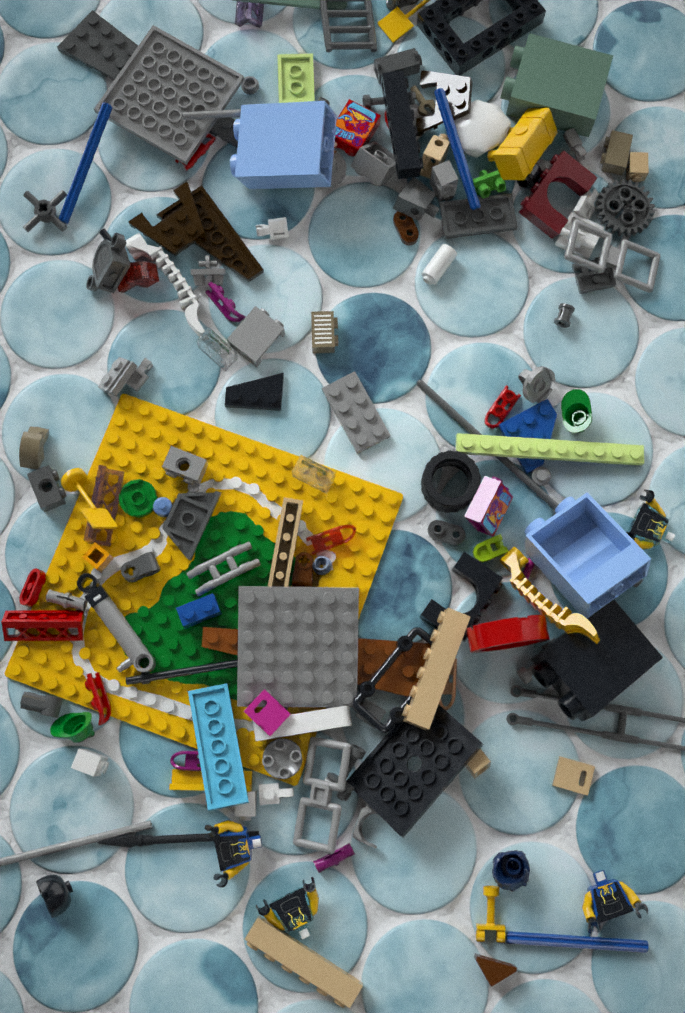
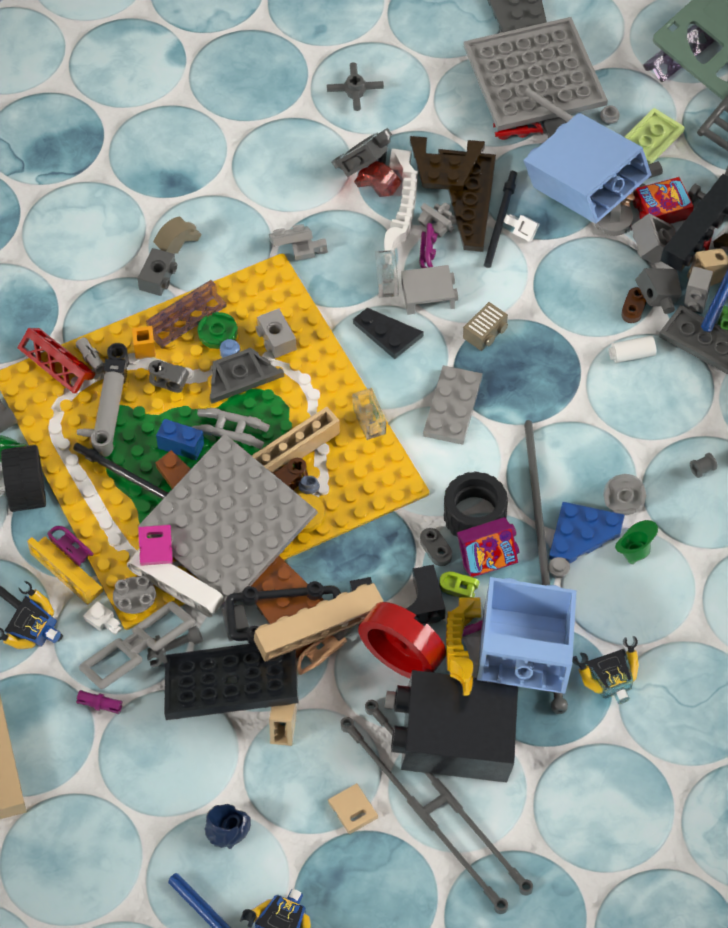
camera: 45 degrees right, 20 degrees down
(32, 587) = (82, 327): red plate -> none
(85, 162) = (419, 74): blue axle -> none
(98, 518) = (183, 281): yellow piece -> none
(98, 702) = (47, 428): red piece -> none
(119, 745) = (23, 478): none -> black tyre
(218, 747) = (93, 541): medium azure plate -> none
(236, 207) = (509, 189): none -> black bar
(247, 811) = (72, 605): white brick -> none
(293, 910) = (30, 708): torso -> none
(334, 535) = (341, 473): clear red piece -> none
(357, 834) = (139, 696): light grey helmet -> none
(490, 892) = (195, 832): yellow bar -> none
(494, 969) = (136, 890): reddish brown slope -> none
(498, 411) = (573, 492): red piece -> none
(550, 449) = (587, 551): yellowish green plate -> none

